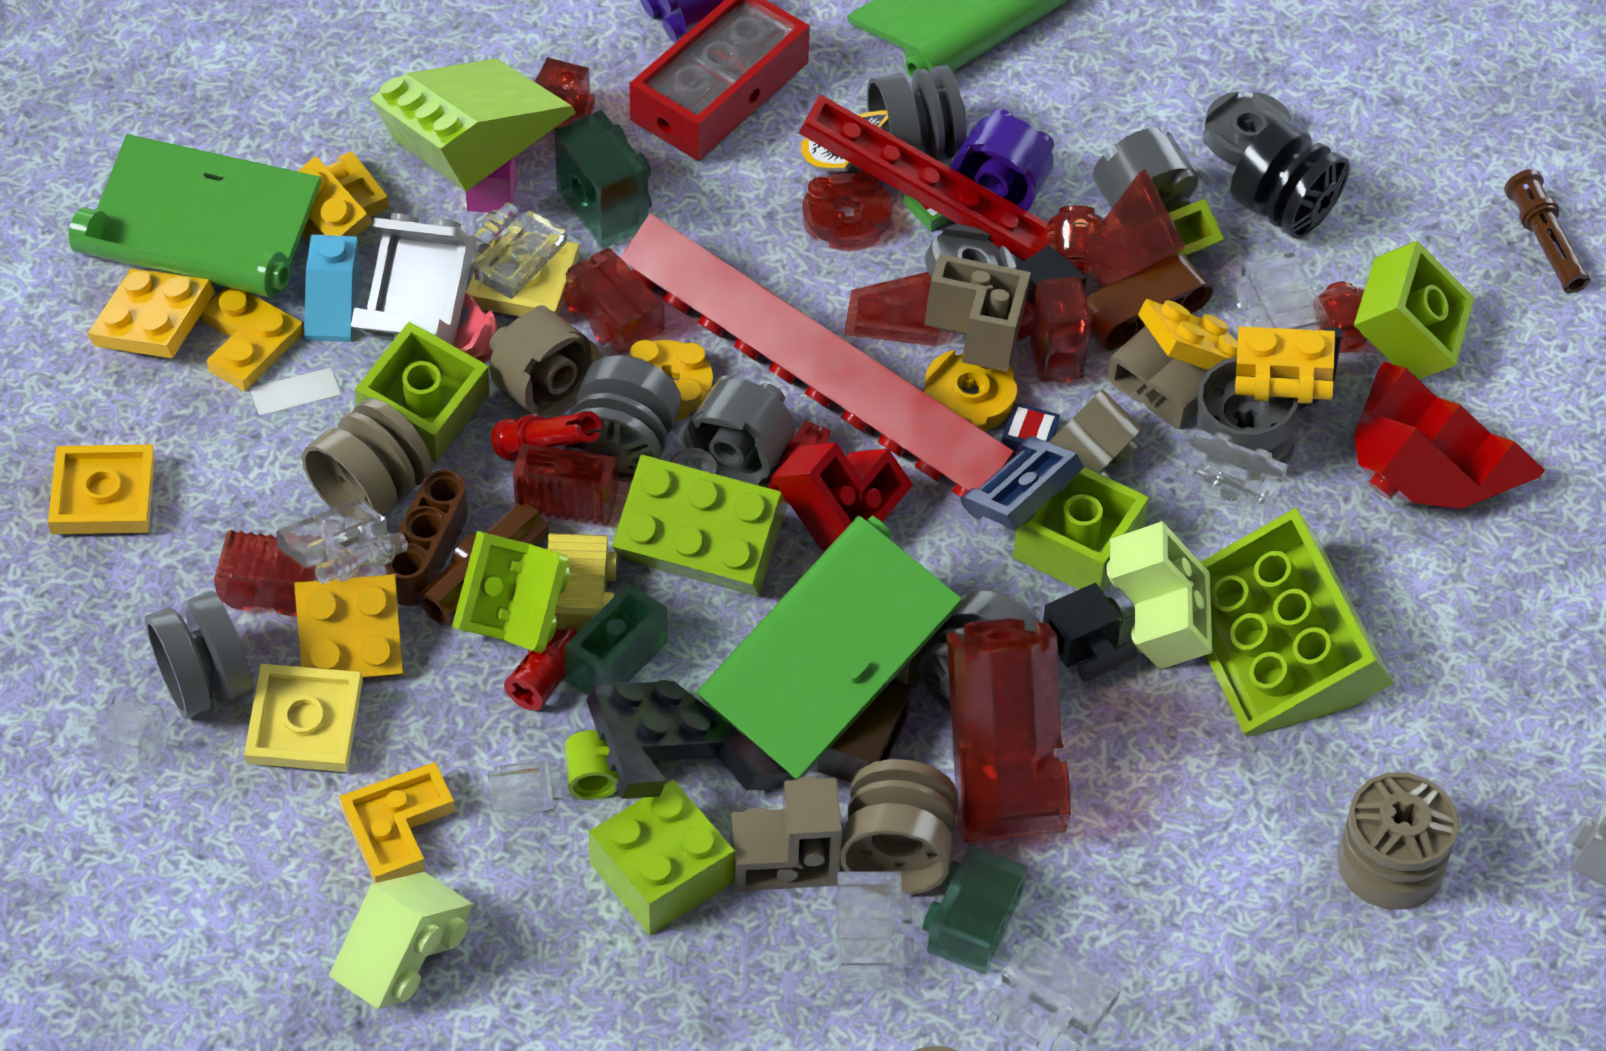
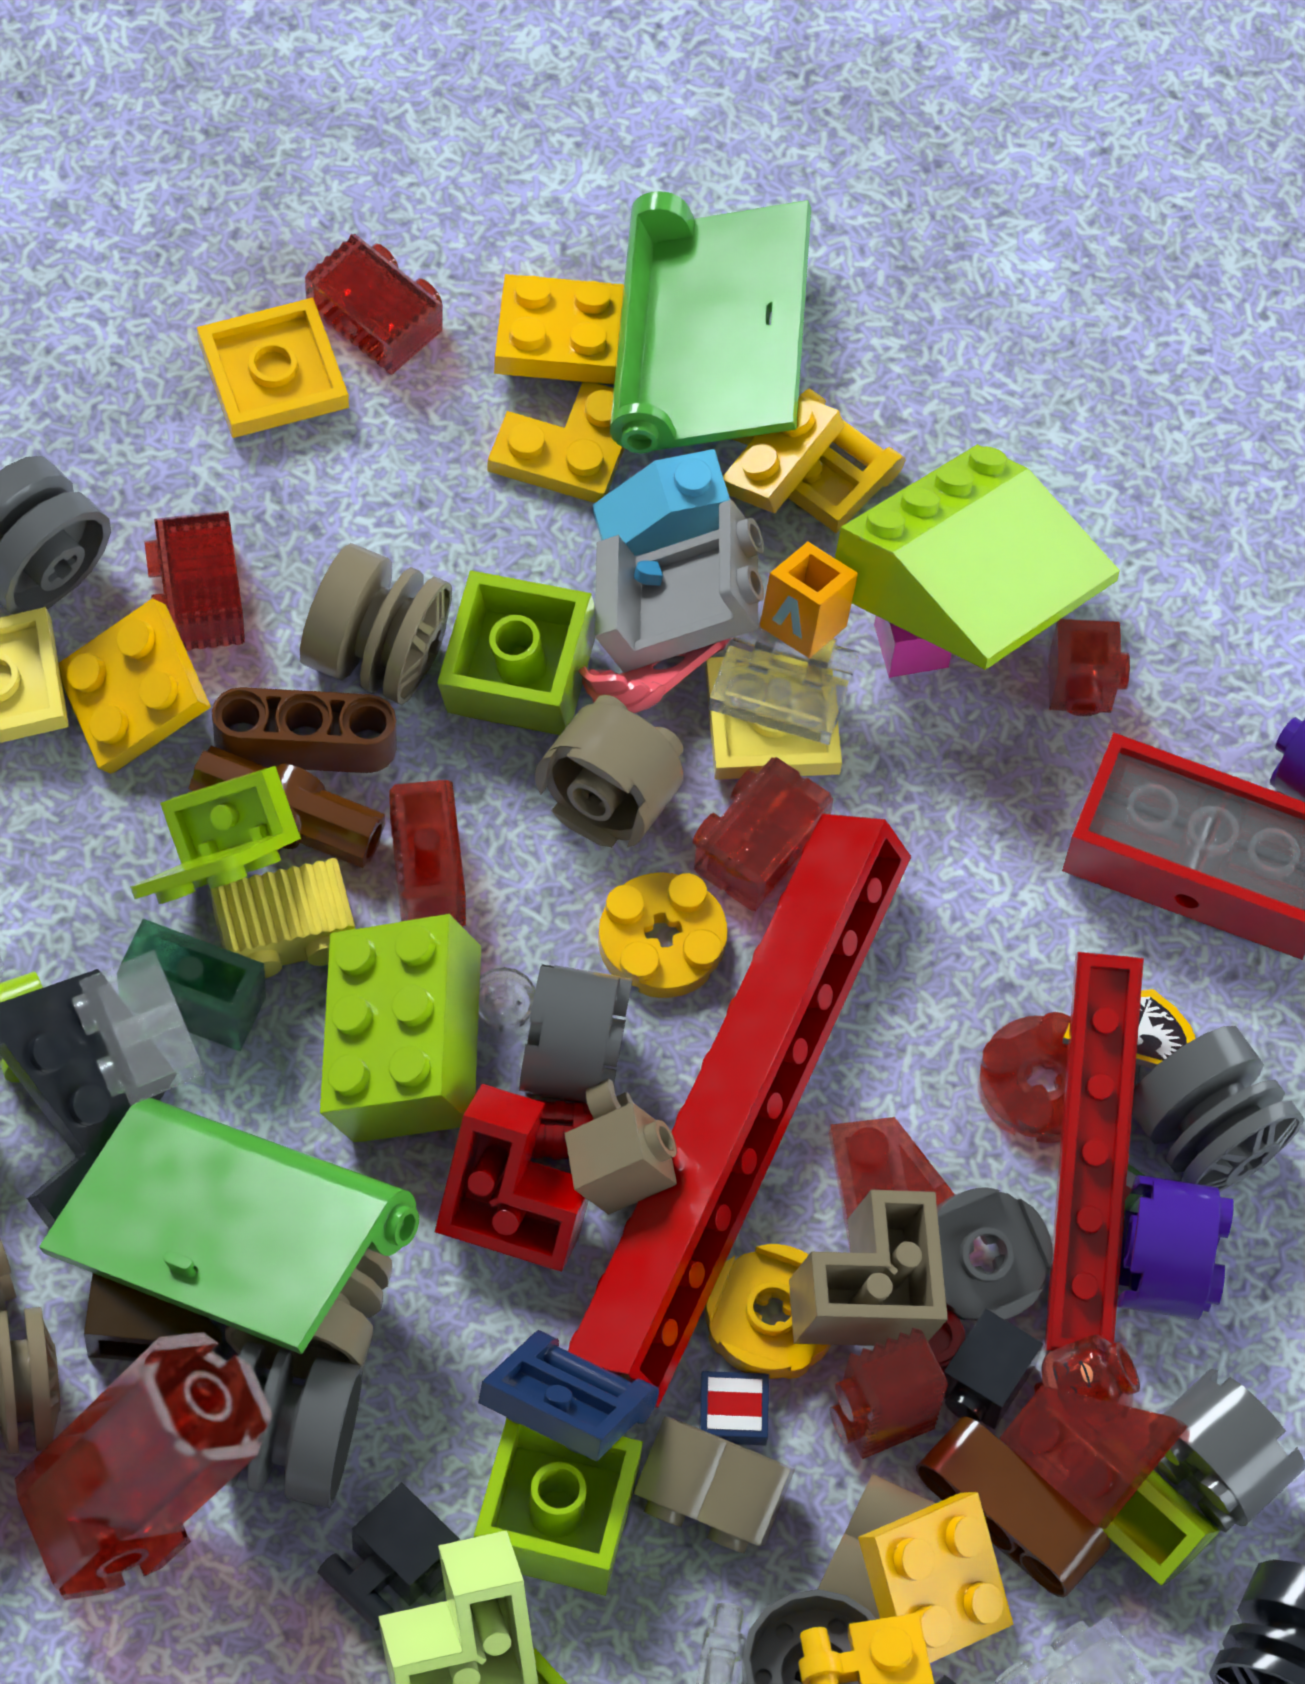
camera: 70 degrees right, 10 degrees up
(78, 411) = (375, 302): none -> clear red brick
(295, 391) = (507, 525): white sticker -> none
(330, 536) = (235, 614): clear plate -> none
(387, 304) = (648, 573): none -> dark azure piece
(473, 197) = (808, 599): none -> light orange brick
(539, 672) = (120, 915): red hinge -> none
(549, 432) = (478, 801): red pin -> none
(602, 178) = (946, 753): clear green brick -> none
(634, 407) = (542, 888): dark grey wheel -> none
(659, 659) = (139, 1028): none -> clear brick
(845, 417) = (620, 1152): none -> dark tan brick

